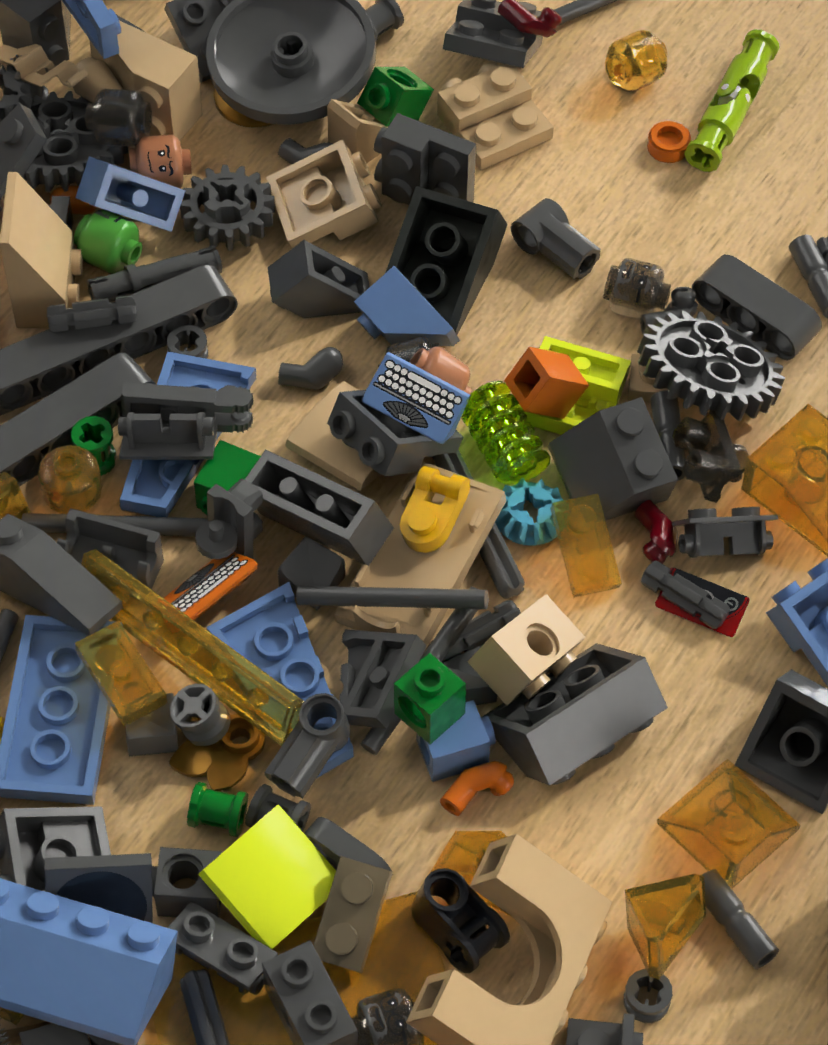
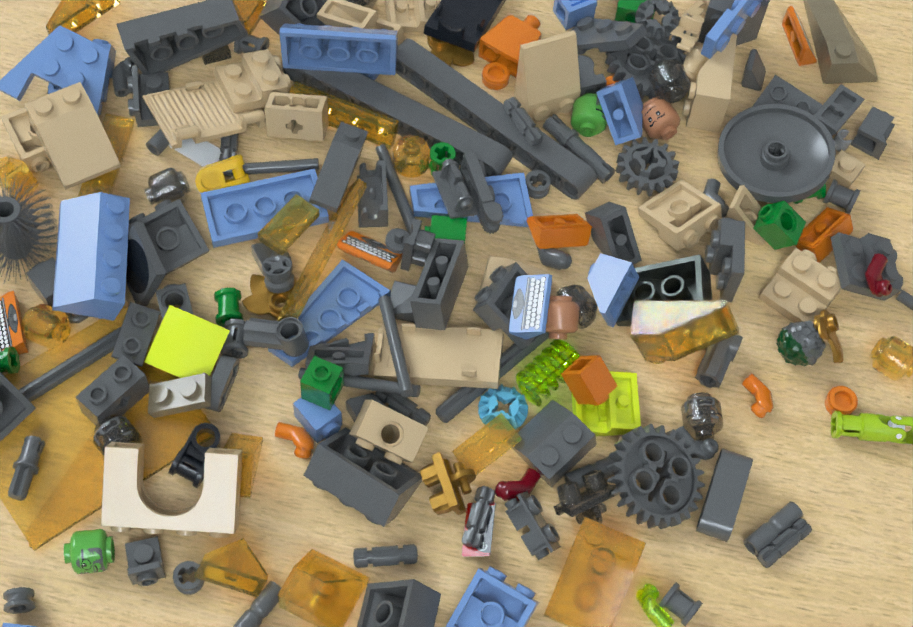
camera: 65 degrees right, 5 degrees up
(281, 344) = (559, 231): none -> orange slope
(414, 50) = (818, 233): none -> orange slope
(427, 524) = (454, 346): yellow plate -> none
(511, 261) = (679, 328): none -> clear yellow slope
(568, 107) = (826, 325): none -> pearl gold plate
(578, 142) = (800, 343): none -> piece
(626, 216) = (762, 395): none -> orange arm
(648, 614) = (441, 472): none -> pearl gold hips
(702, 727) = (385, 556): none -> dark grey axle

